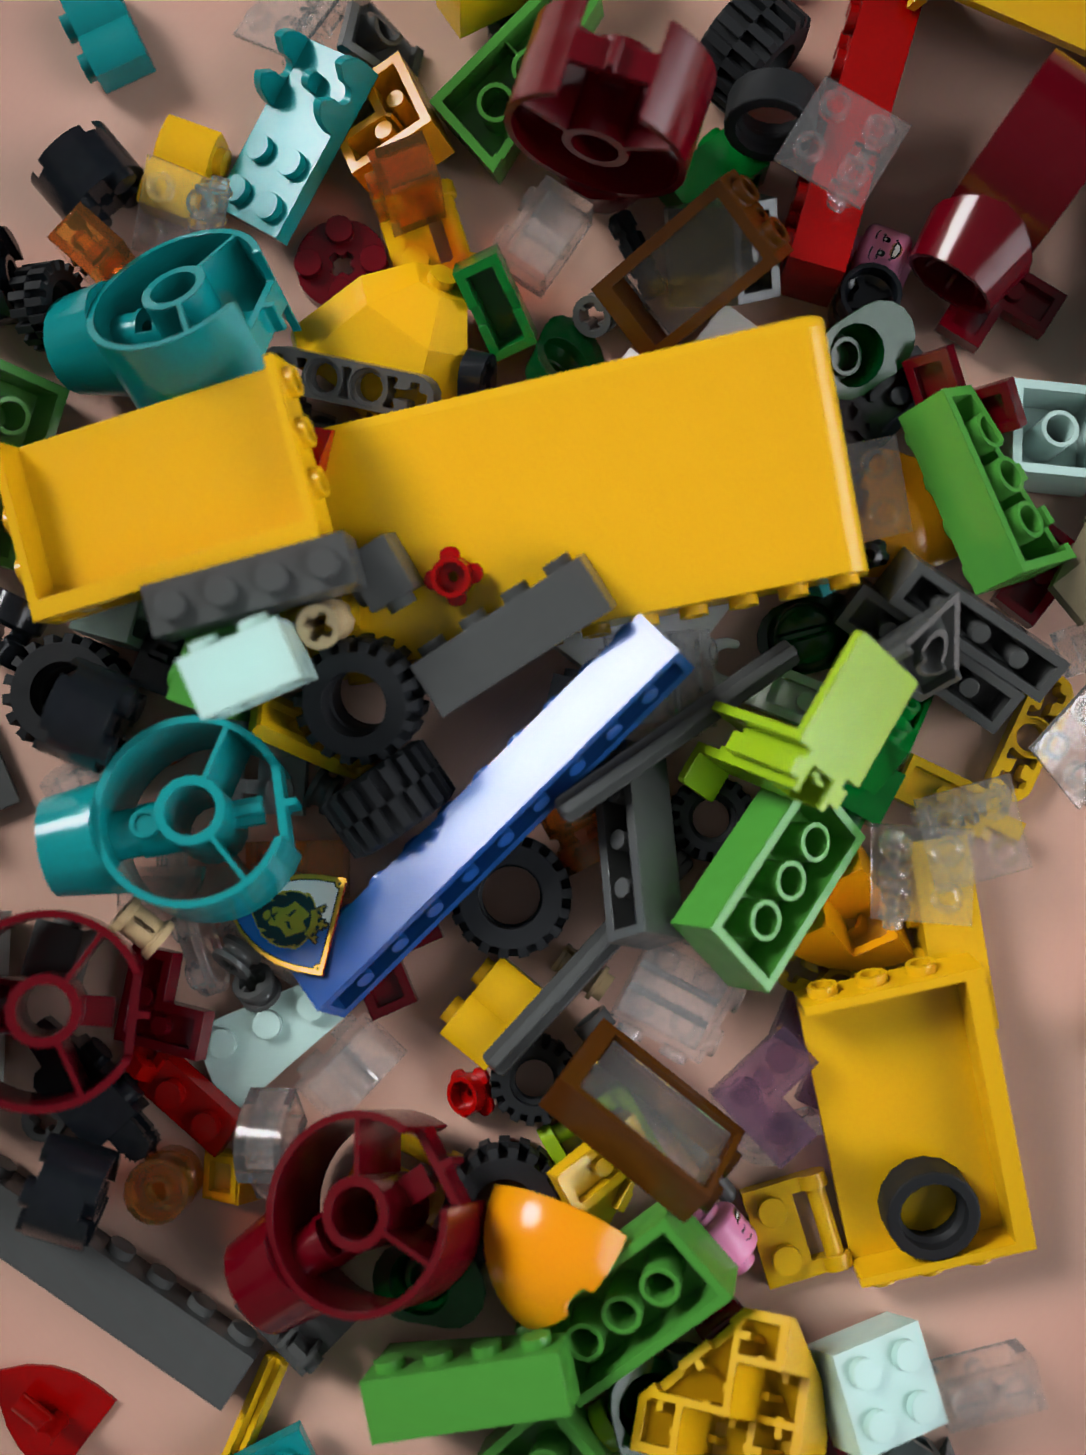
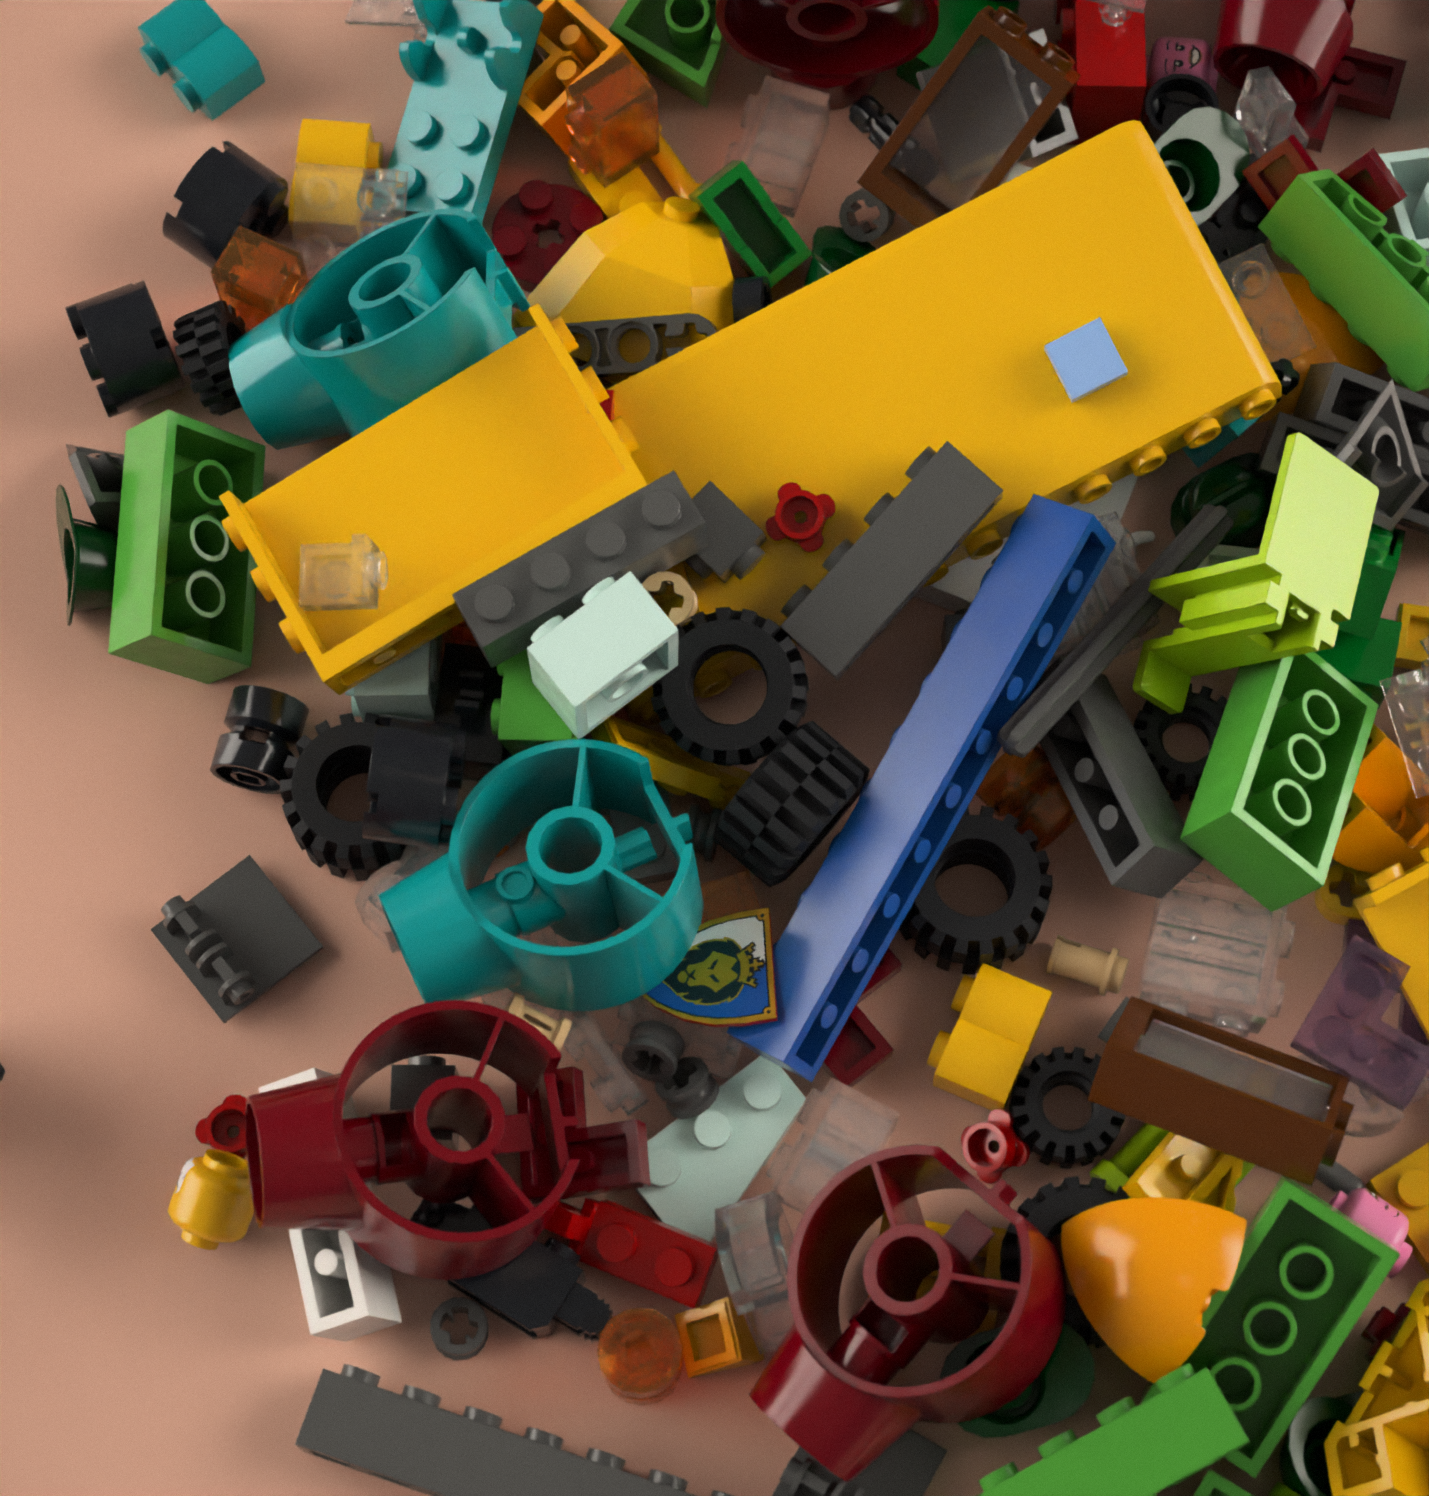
camera: 15 degrees left, 15 degrees down
(69, 1193) = (528, 1377): black brick -> none
(70, 535) = (342, 575): none -> clear bracket
(558, 994) = (1067, 982): dark grey axle -> none
(714, 513) = (1085, 360): none -> light blue tile
(938, 318) = (1267, 112): none -> clear bracket

